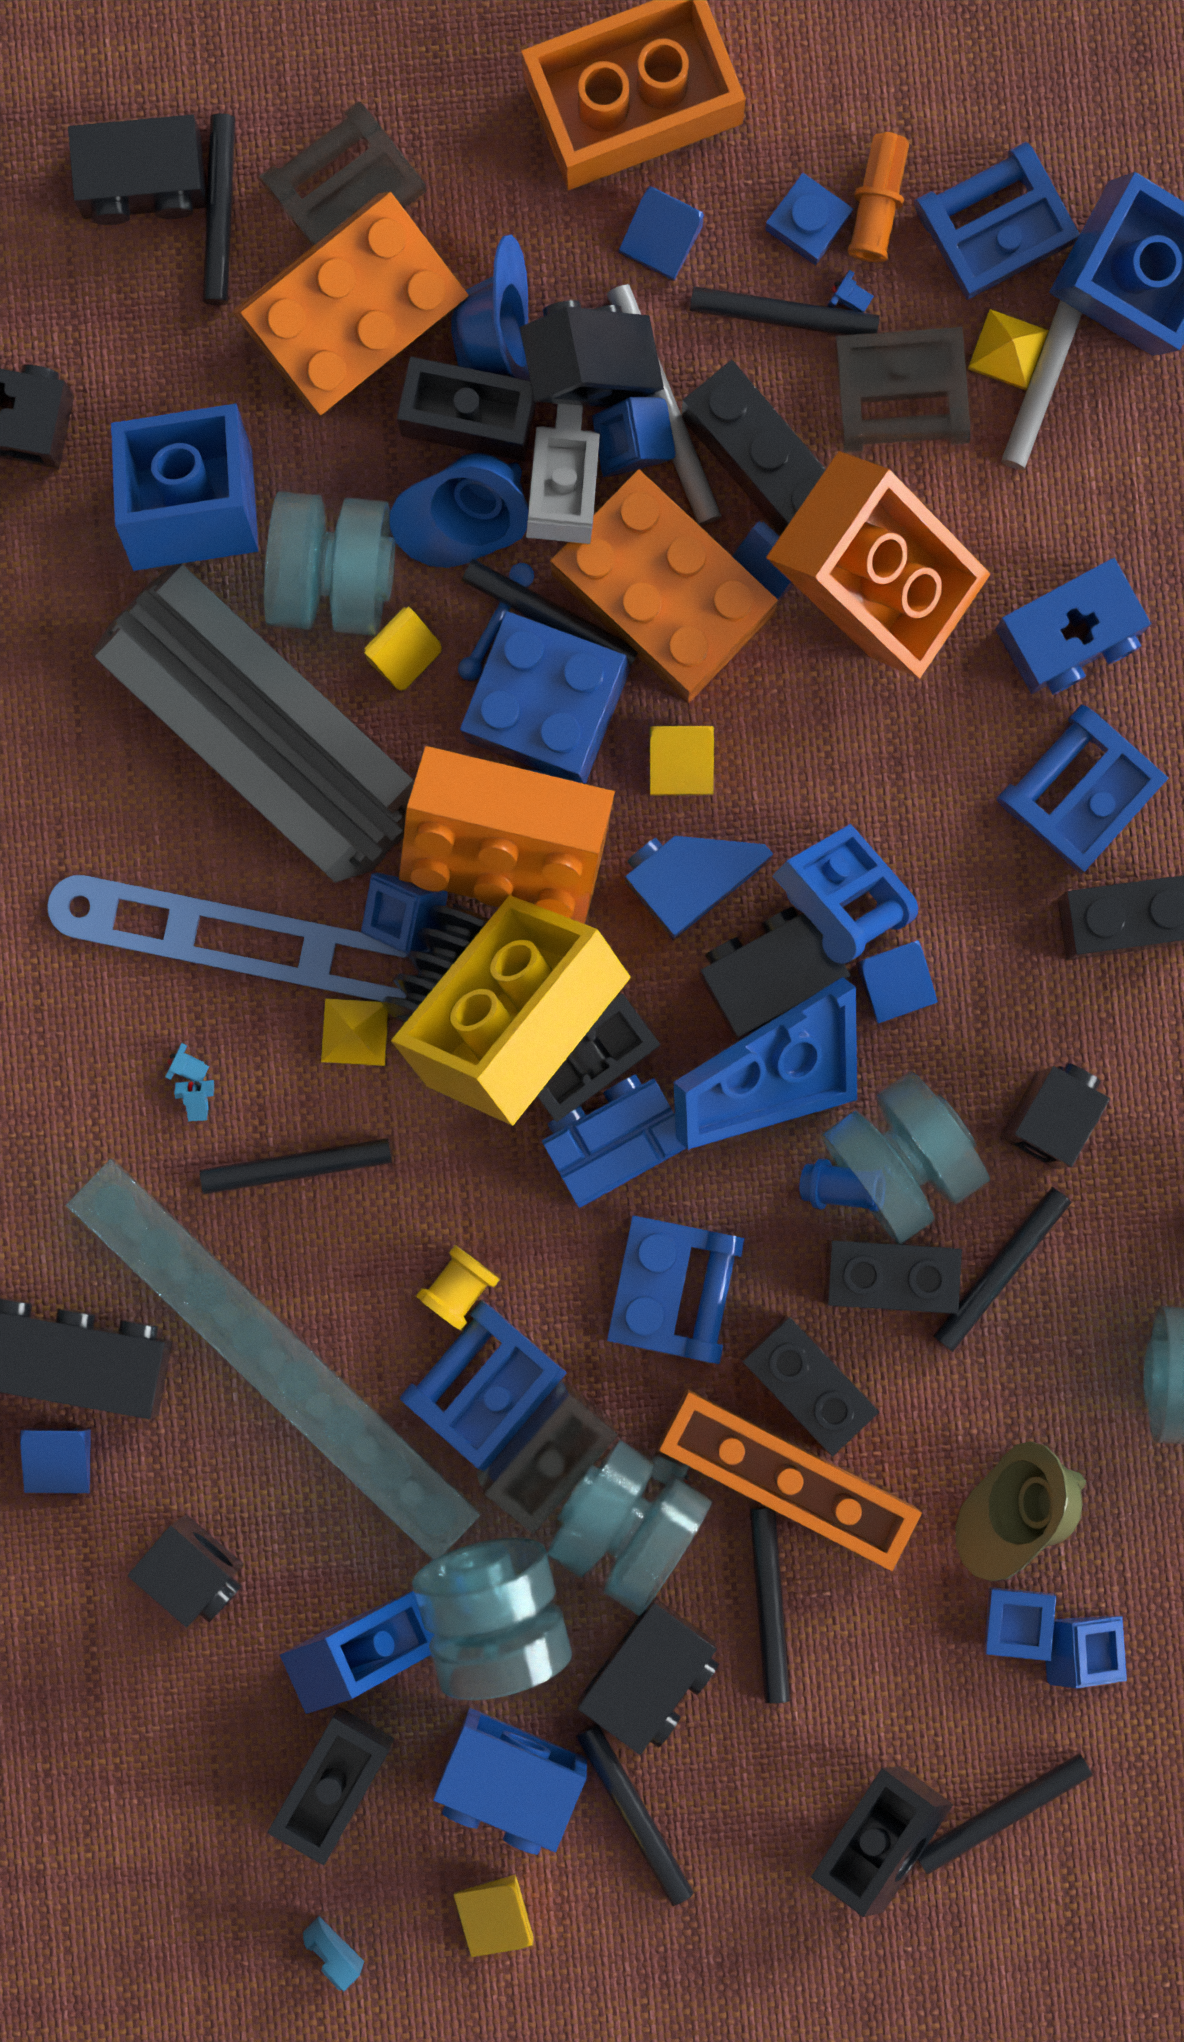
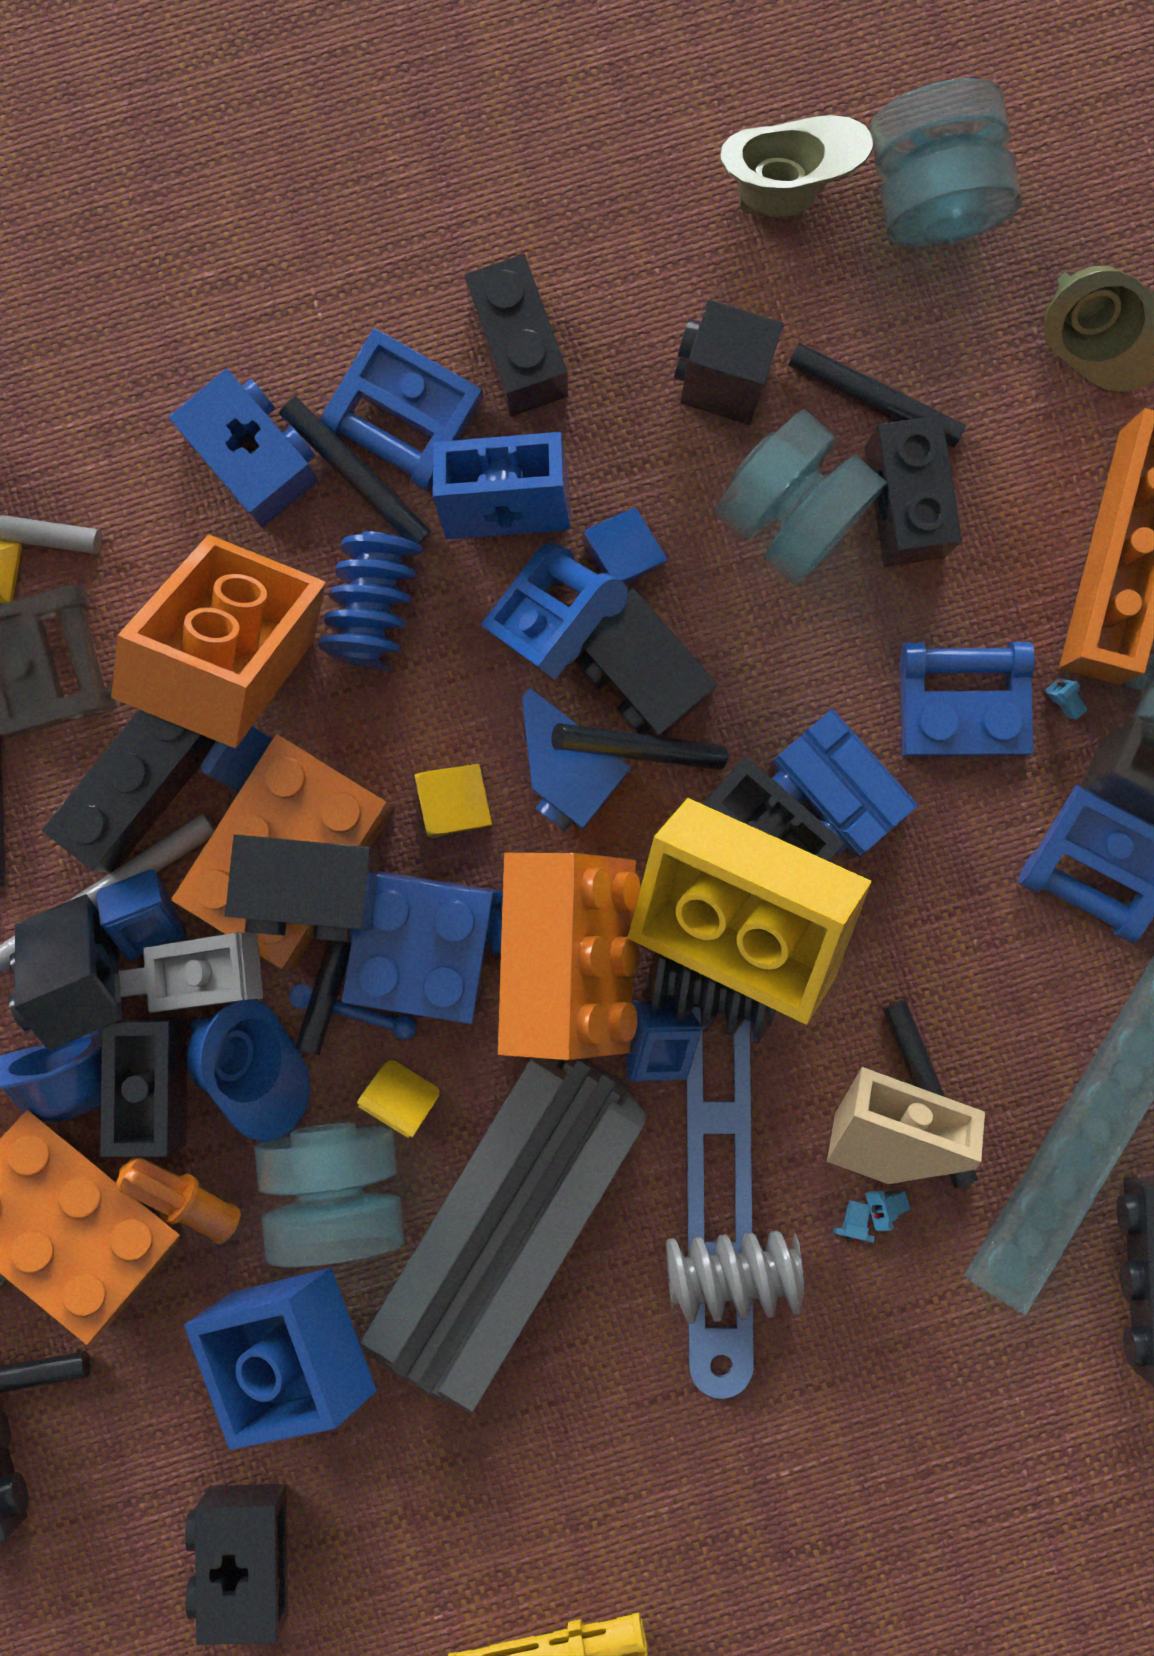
camera: 105 degrees left, 0 degrees up
(164, 932) = (735, 1275): none -> light grey piece
(267, 1124) = (903, 1131): none -> tan slope
(353, 420) = (178, 1199): none -> orange axle
(354, 1032) = (786, 1064): yellow slope -> none
(457, 1287) = (1016, 908): yellow bush -> none
(623, 595) = (302, 884): none -> black brick
(659, 1388) = (1065, 694): none -> dark azure piece
(692, 949) = (638, 746): none -> black bar
(776, 1073) = (746, 641): blue wing -> none
(809, 1385) = (1035, 549): black brick -> none
(833, 1185) = (836, 567): blue pin -> none
(896, 718) = (368, 599): none -> blue piece
(980, 869) = (501, 485): none -> blue brick
(1028, 730) = (354, 471): none -> black bar

